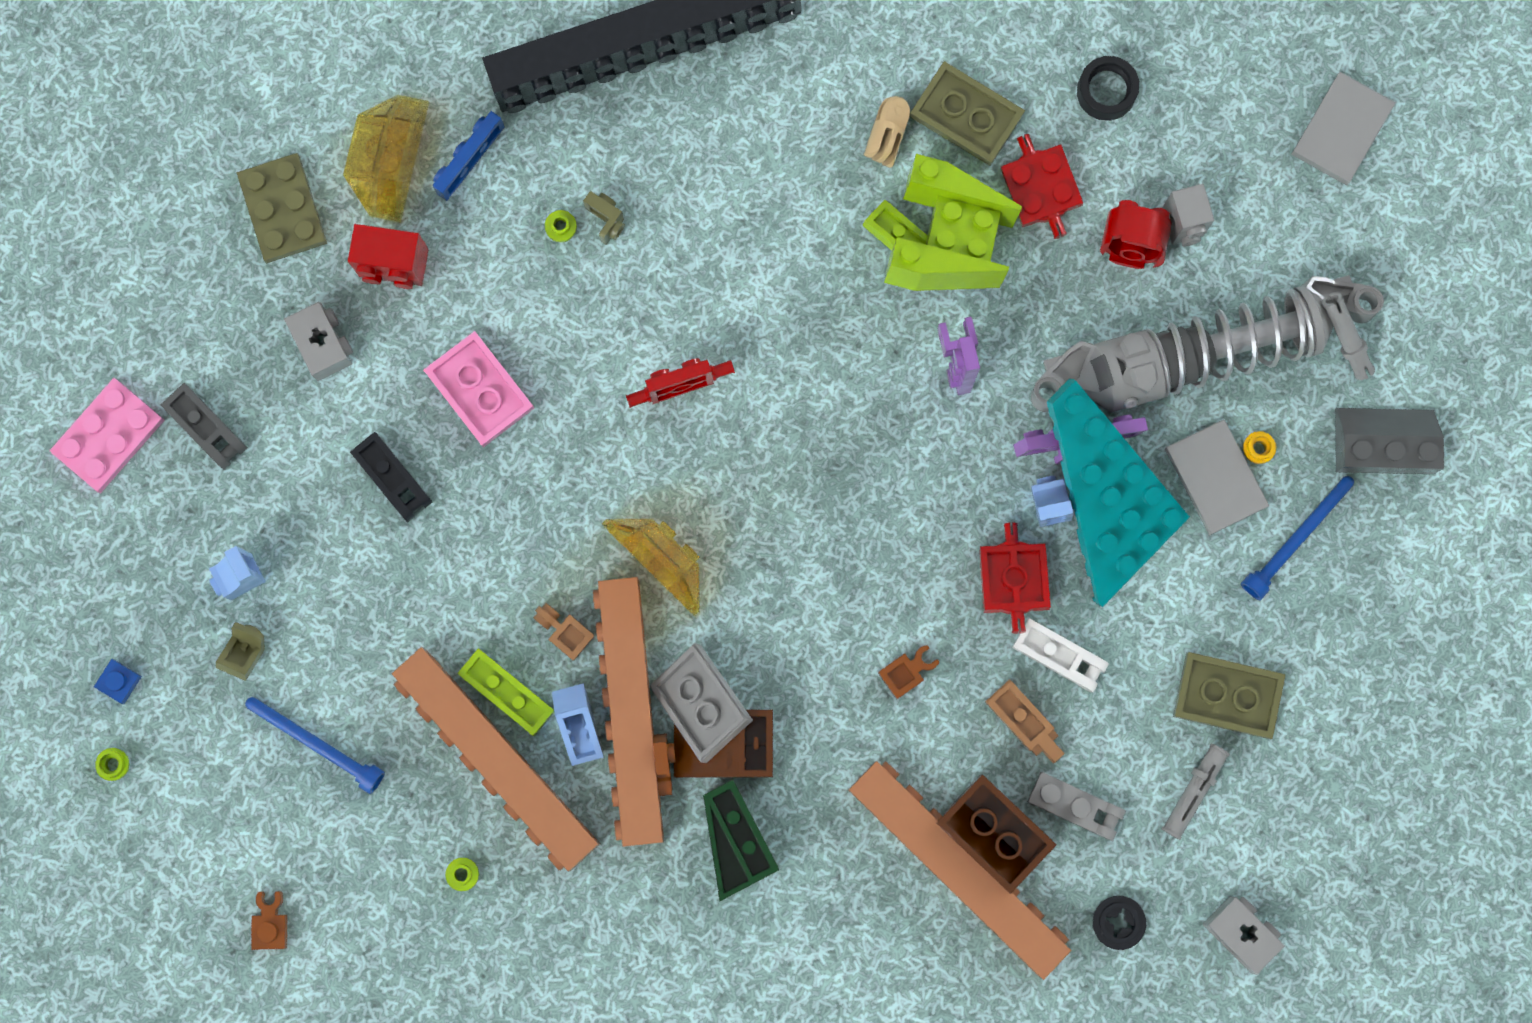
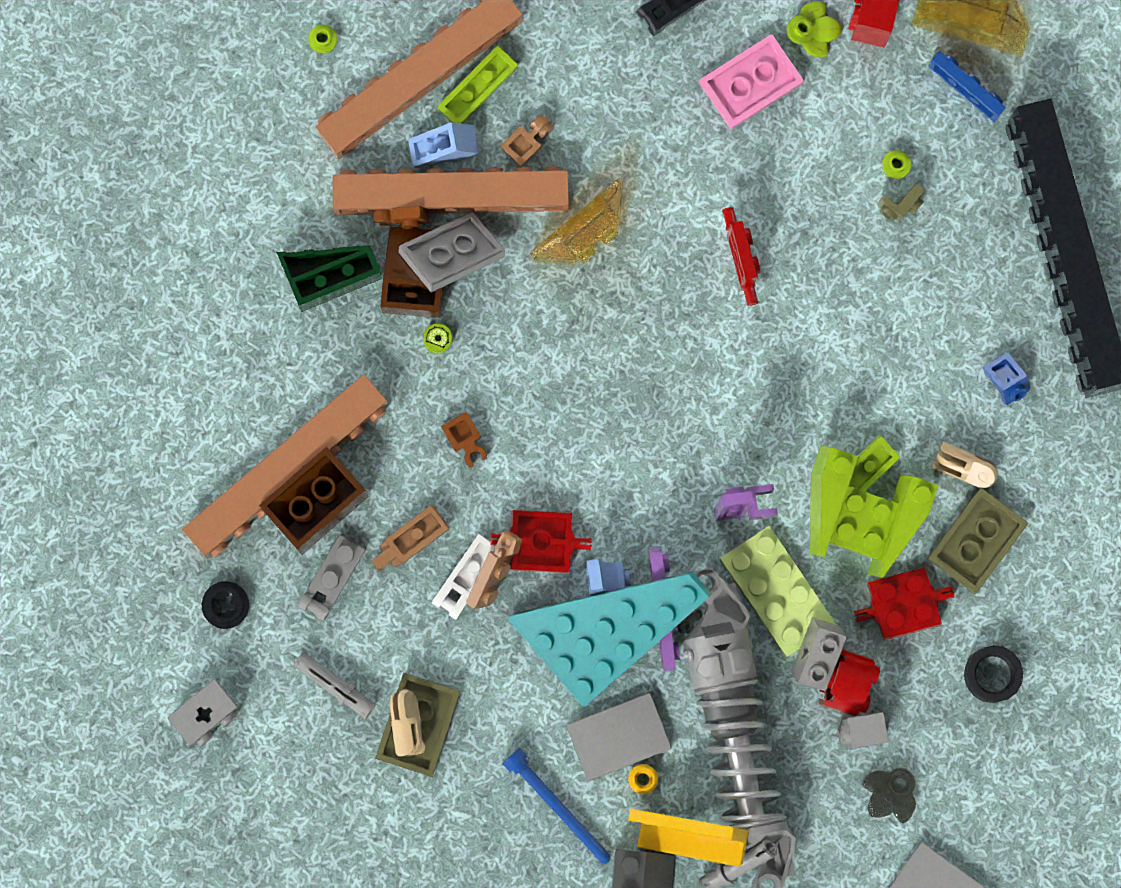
camera: 85 degrees right, 0 degrees up
(412, 321) = (818, 29): none -> lime plate
(787, 93) = (1008, 378): none -> bracket
(796, 712) = (437, 338): none -> tile
(1041, 320) = (775, 589): none -> yellowish green plate
(1054, 623) = (493, 571): none -> medium nougat hinge
(1109, 268) = (818, 654): none -> light grey brick
(1235, 706) = (406, 724): none -> tan arm
(1249, 189) = (887, 797): none -> clear smoke plate
(1323, 388) = (690, 838): none -> yellow panel

